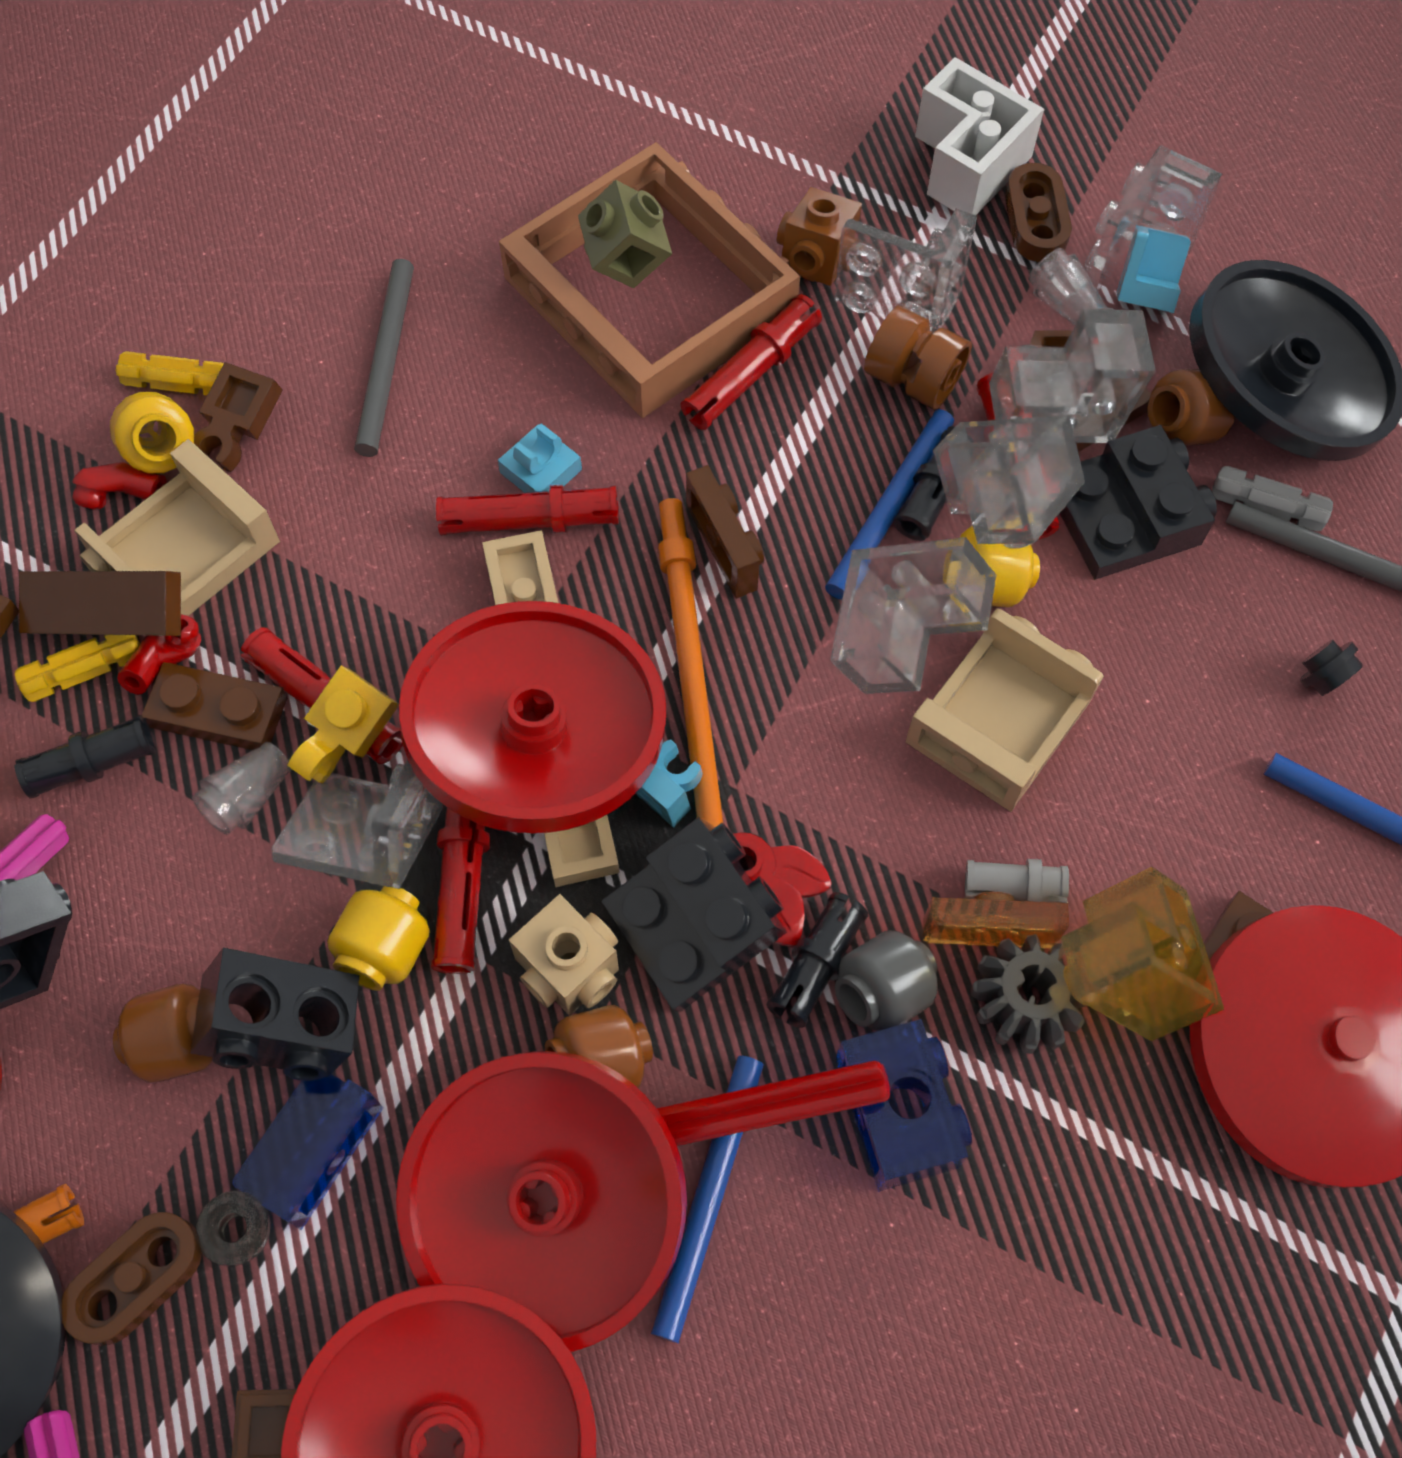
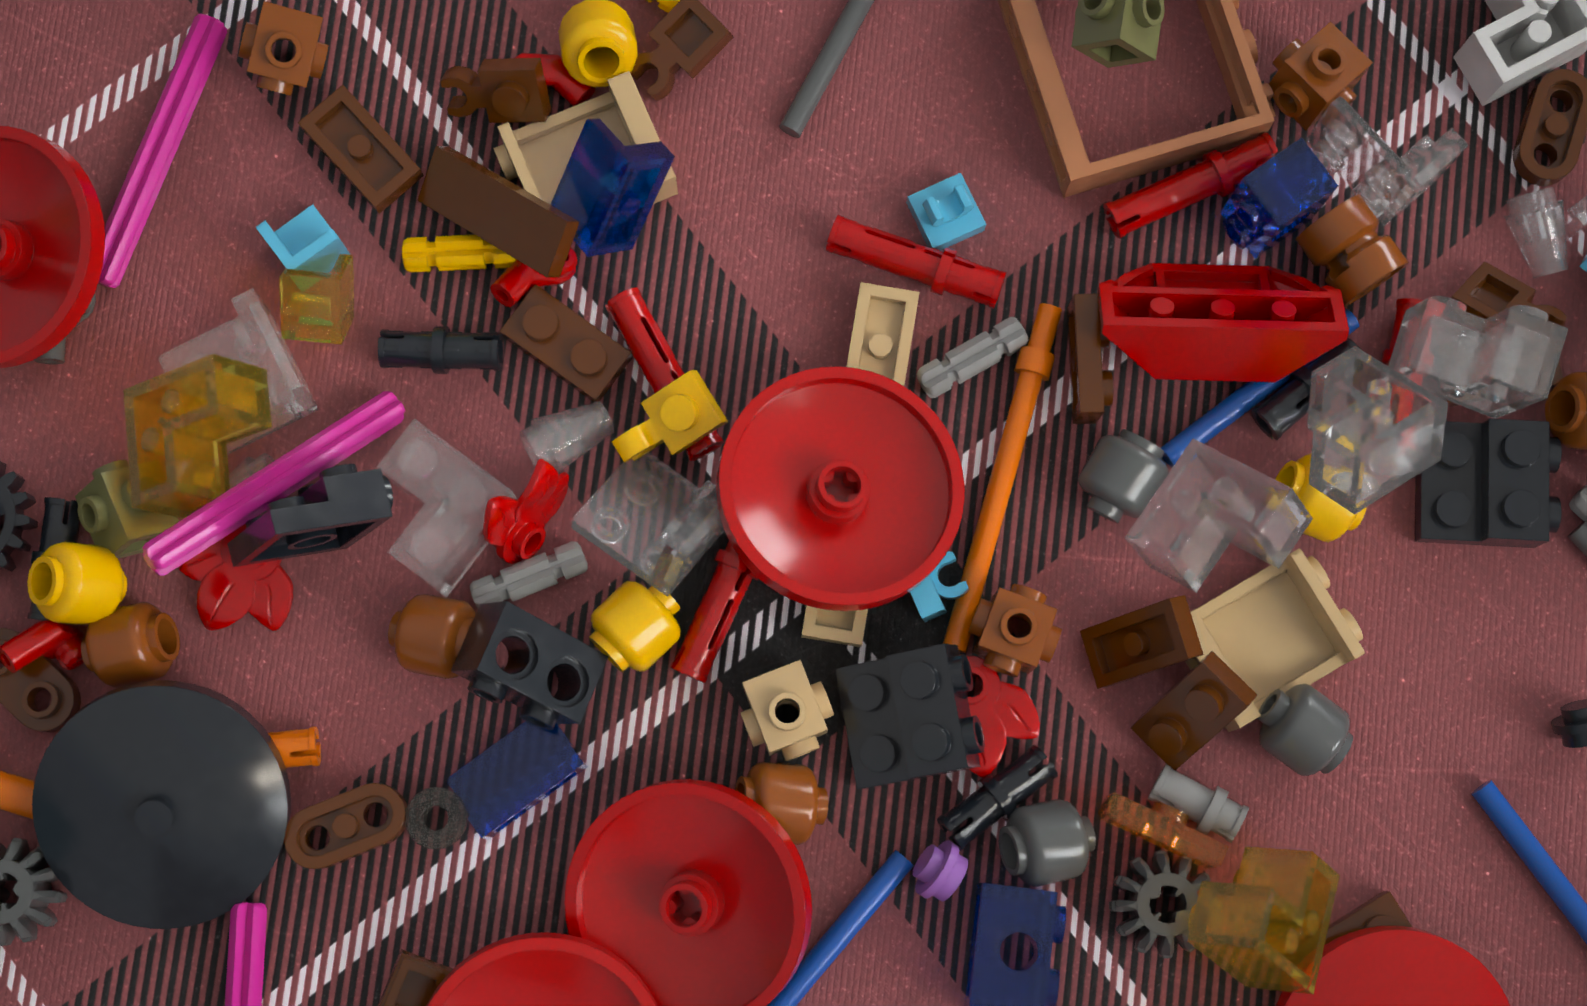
camera: 20 degrees right, 15 degrees up
(72, 499) = (506, 87): none -> reddish brown plate
(147, 899) = (454, 496): none -> clear brick
(207, 537) = (610, 188): none -> clear blue panel
(221, 877) = (519, 524): none -> red plate
(260, 927) = (530, 575): none -> light grey axle
(618, 570) = (972, 357): none -> light grey axle
(764, 789) = (1001, 649): none -> dark orange brick
(777, 1102) = (907, 909): red axle -> none
(791, 1052) = (939, 871): none -> medium lavender plate
(802, 614) = (1122, 475): none -> dark grey head
(832, 332) = (1277, 199): none -> clear blue brick
(834, 455) = (1220, 321): none -> red wedge
(890, 748) = (1141, 642): none -> reddish brown plate
(970, 791) = (1193, 711): none -> reddish brown plate
(1083, 770) = (1304, 730): none -> dark grey head

